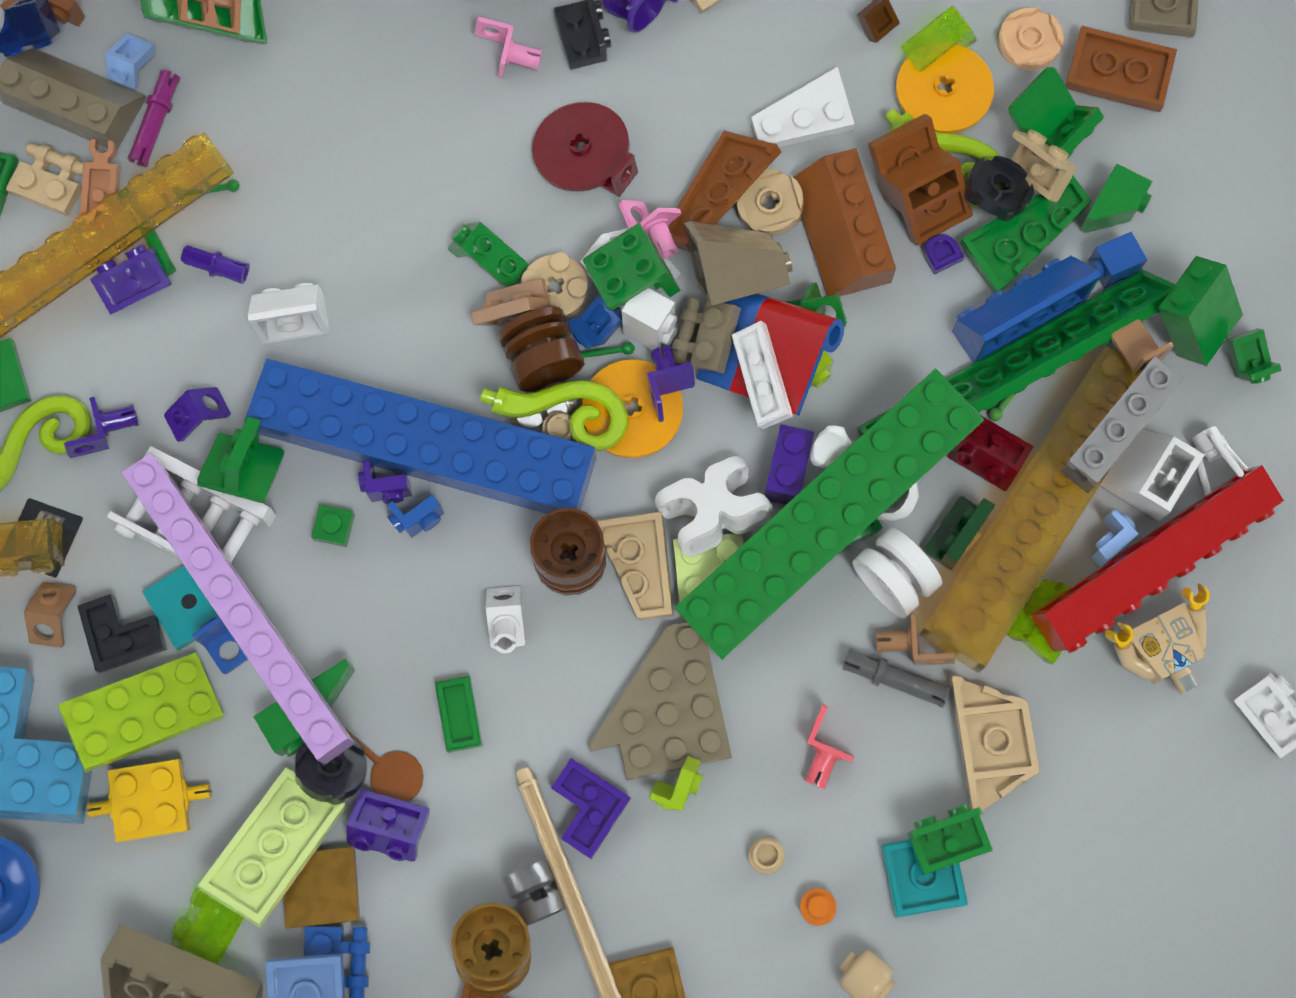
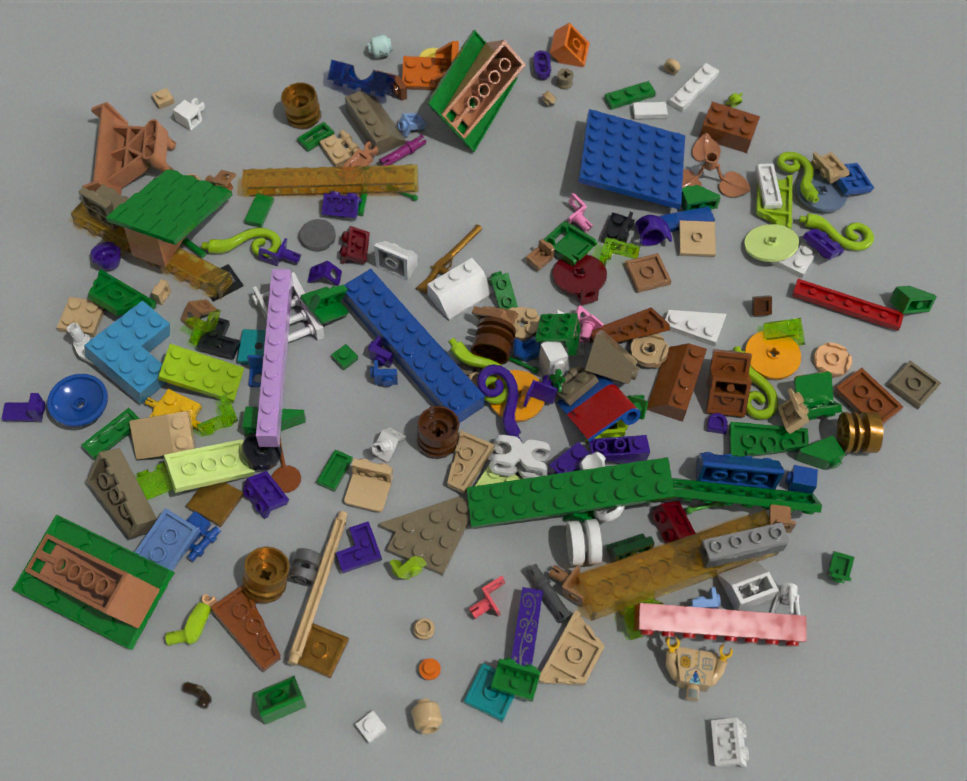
camera: 30 degrees right, 15 degrees down
(78, 636) = (201, 327): none -> clear neon green bracket
(79, 902) = (110, 434): none -> green plate
(131, 353) = (317, 235): none -> flat silver tile
(164, 850) = (162, 434): none -> tan slope
(205, 333) = (354, 245): none -> dark red bracket
(215, 264) = (381, 222): dark purple axle -> none
(237, 757) = (226, 419): none -> clear neon green bracket
(364, 321) = (443, 262): none -> pearl gold piece
(423, 296) = (459, 289): none -> white slope
(502, 155) = (541, 255): none -> medium nougat bracket
(529, 704) = (369, 485): none -> tan bracket
(536, 105) = (573, 245): none -> green container
(600, 64) = (618, 247): none -> clear neon green bracket
(657, 462) = (508, 420): none -> dark purple plant
(676, 75) = (647, 273): none -> medium nougat tile
(680, 347) = (557, 379): none -> green plant
(762, 375) = (585, 413): white tile -> none
(845, 391) = (622, 449): none -> dark purple slope
(907, 753) = (527, 626): none -> dark purple slope
(1002, 202) = (756, 405): black plate -> none
(1150, 133) = (860, 432): none -> pearl gold wheel
(1201, 310) = (826, 525): green brick -> none

